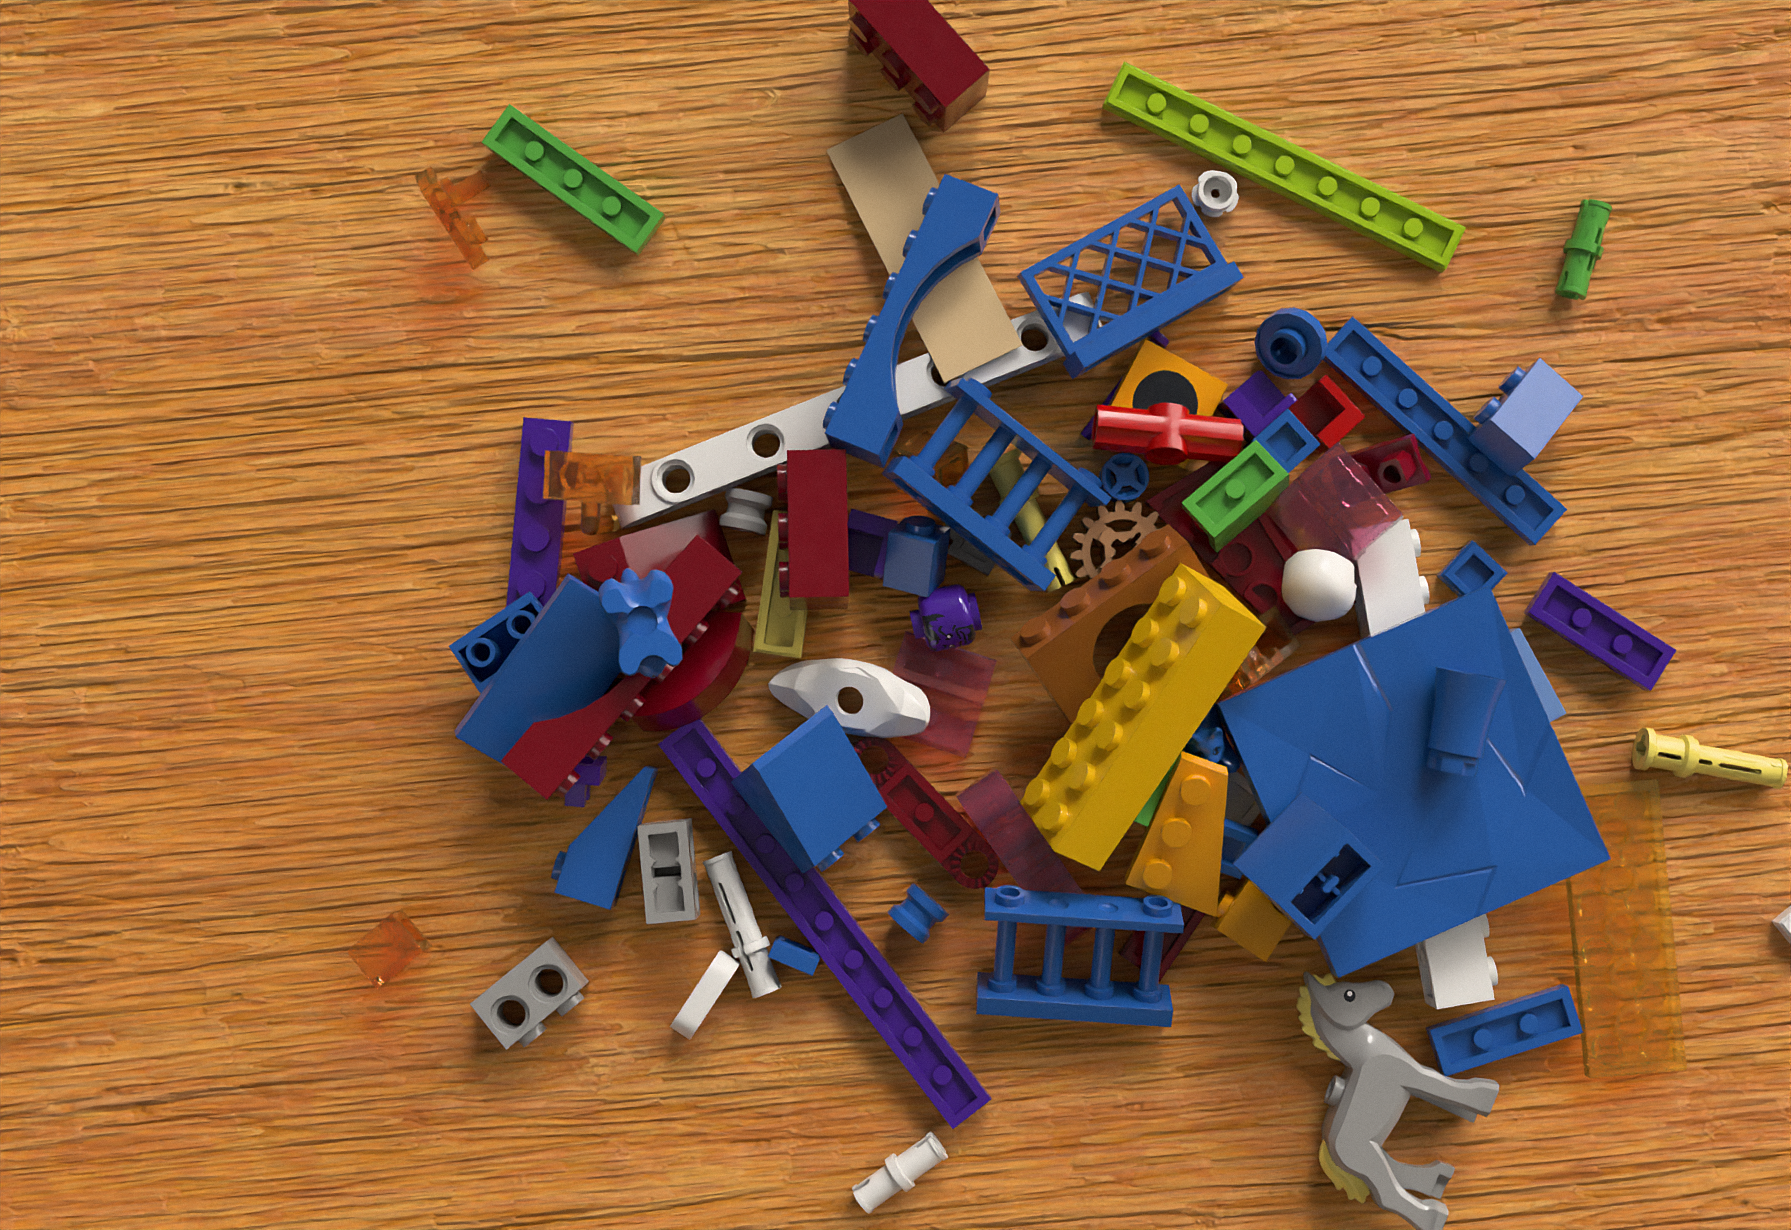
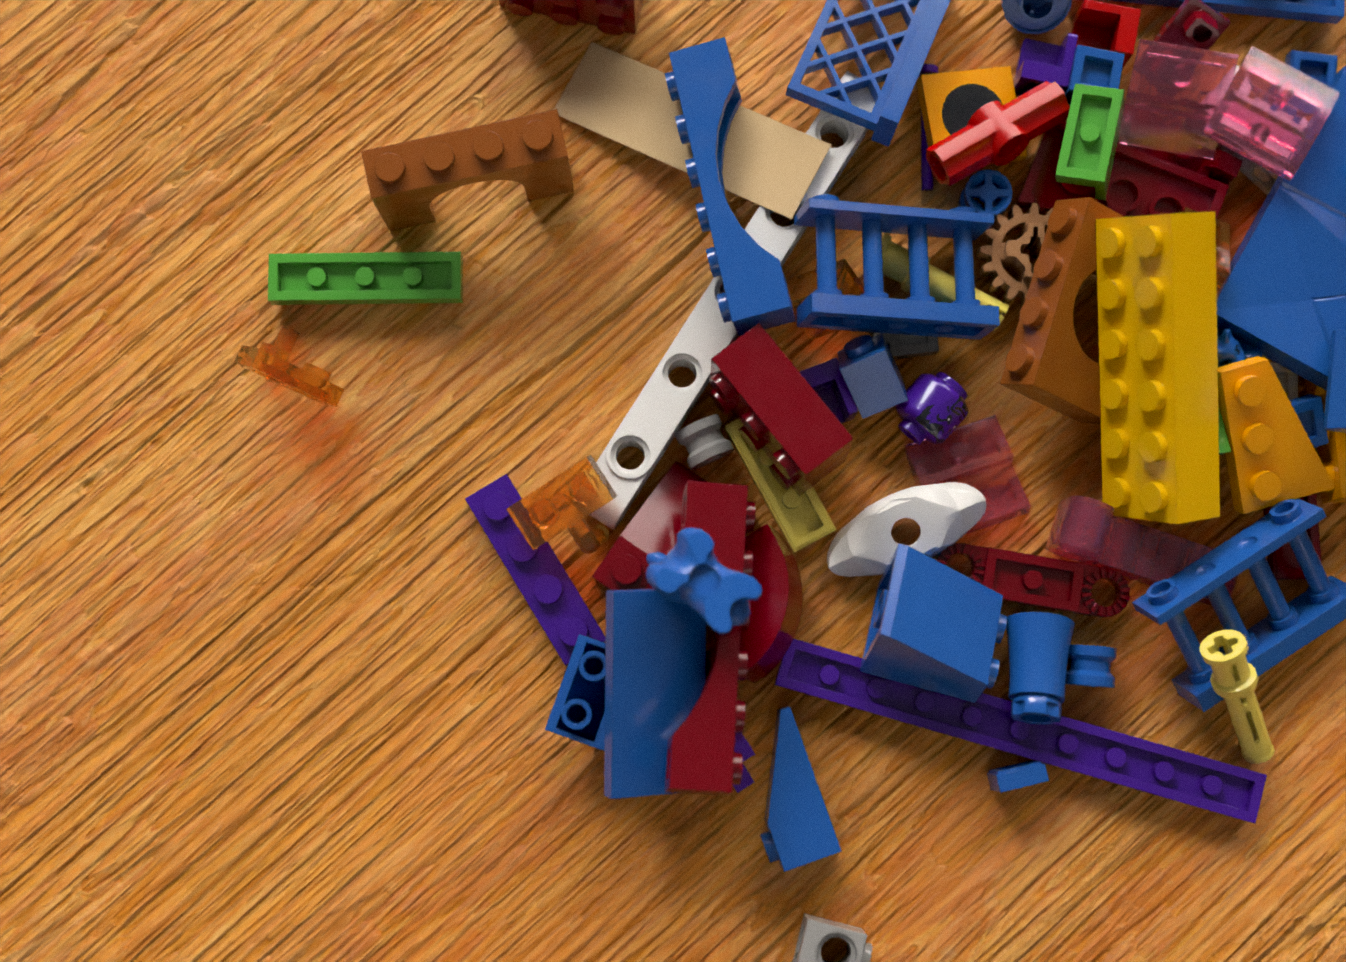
camera: 40 degrees left, 5 degrees down
(663, 129) = (414, 172): none -> dark orange arch
(669, 871) = (865, 782): light grey brick -> none
(705, 994) = (968, 865): white beam -> none
(742, 925) = (955, 784): white pin -> none
(873, 881) = (1038, 665): none -> blue plant
(899, 1172) = (1238, 893): white pin -> none
(1003, 1061) = (1235, 682): none -> light yellow pin
(1318, 585) = (1206, 168): white hair -> none
(1389, 580) = (1271, 113): none -> clear pink slope

